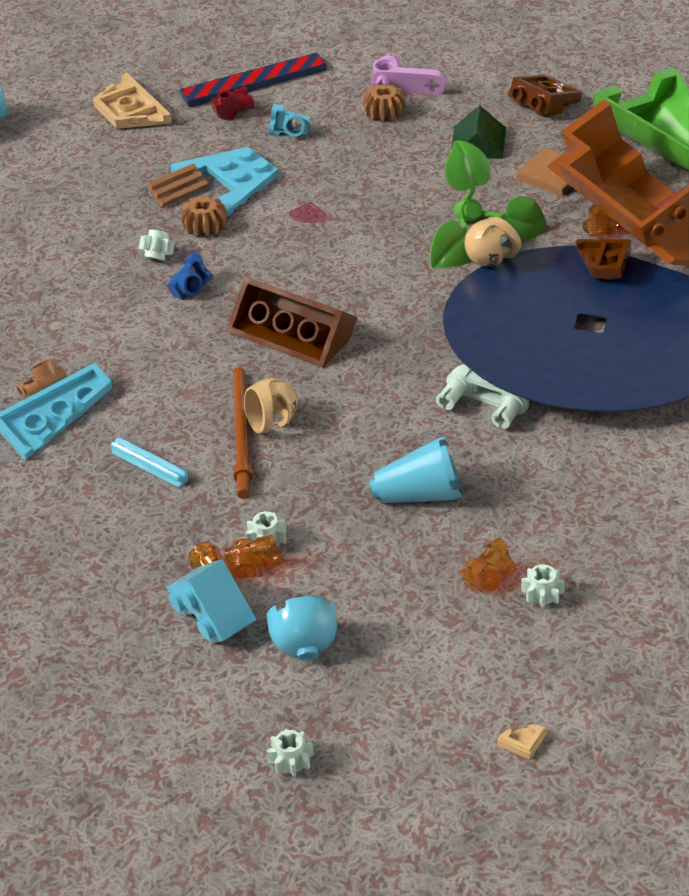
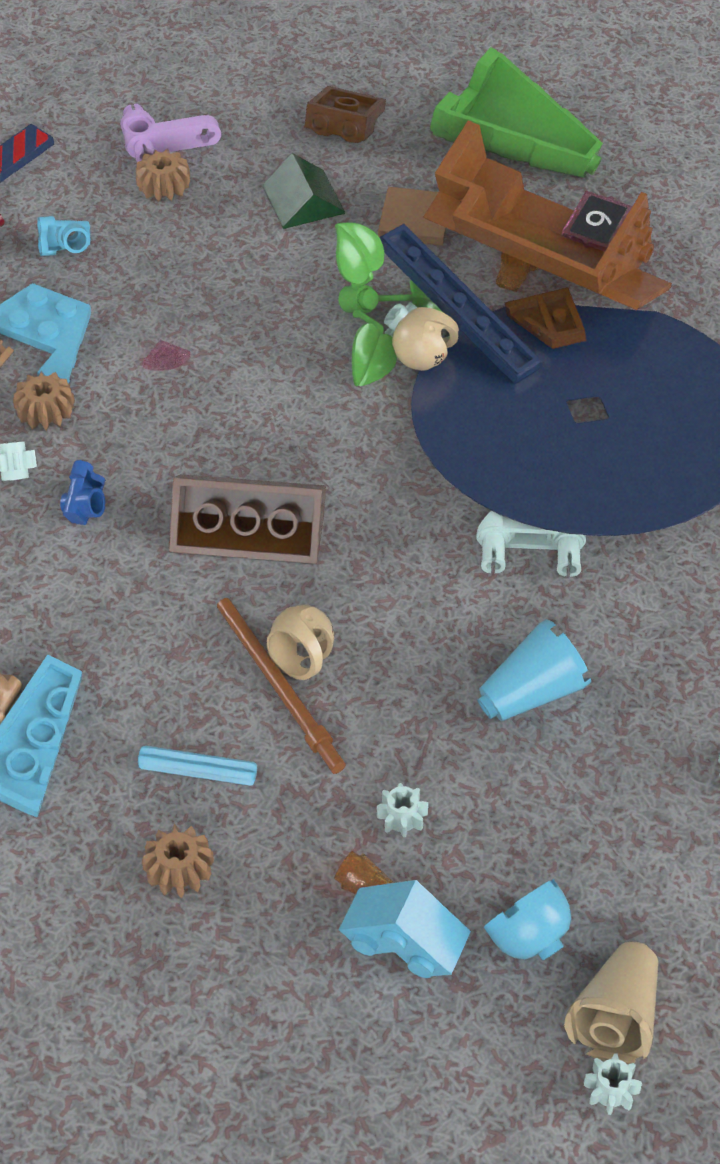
camera: 30 degrees left, 10 degrees up
(92, 511) = (177, 860): none -> medium nougat gear
(249, 555) = (401, 851): clear orange plate -> none
(327, 700) = (618, 1006): none -> tan cone
(488, 567) = (674, 765): clear orange plate -> none
(534, 227) = (460, 304): none -> dark blue tile

